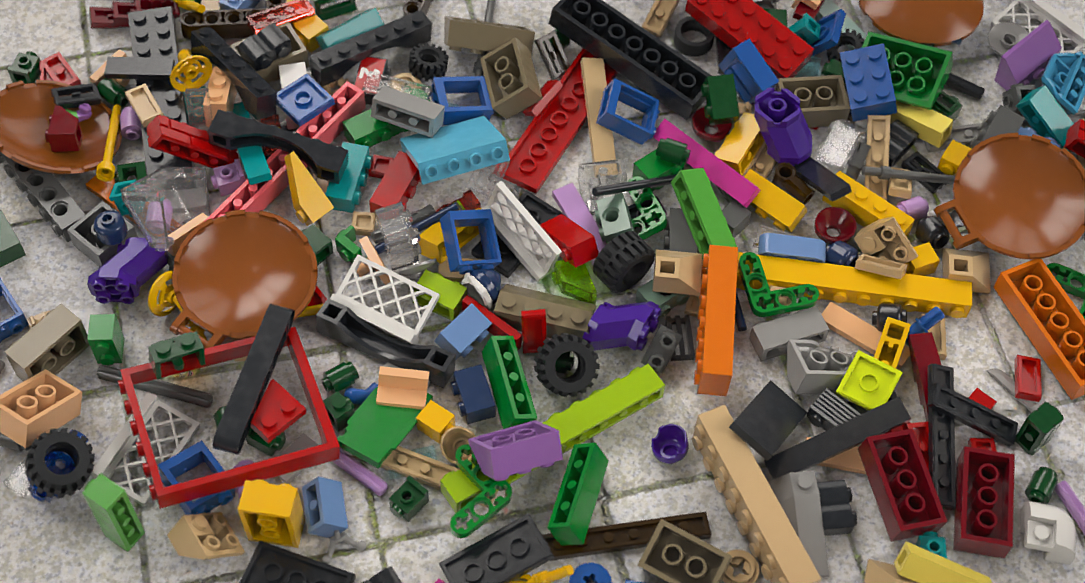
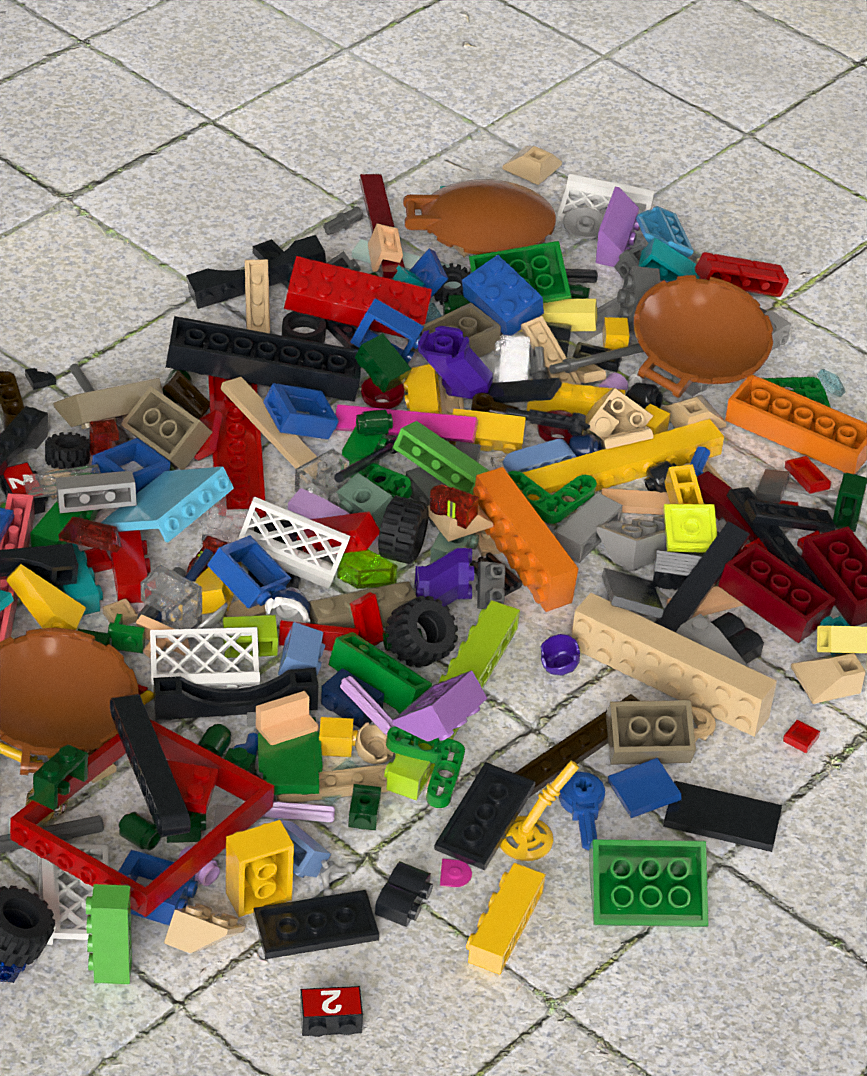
camera: 35 degrees left, 15 degrees down
(376, 149) = (91, 534): none -> clear red panel
(454, 63) = (102, 435): none -> clear red leg
(471, 414) = (367, 704): none -> lavender axle
(578, 494) = (517, 726): green brick -> none
(664, 265) = (454, 504): none -> clear red leg
(842, 232) = (574, 424): none -> black piece
(985, 373) = (772, 485): none -> dark grey tile

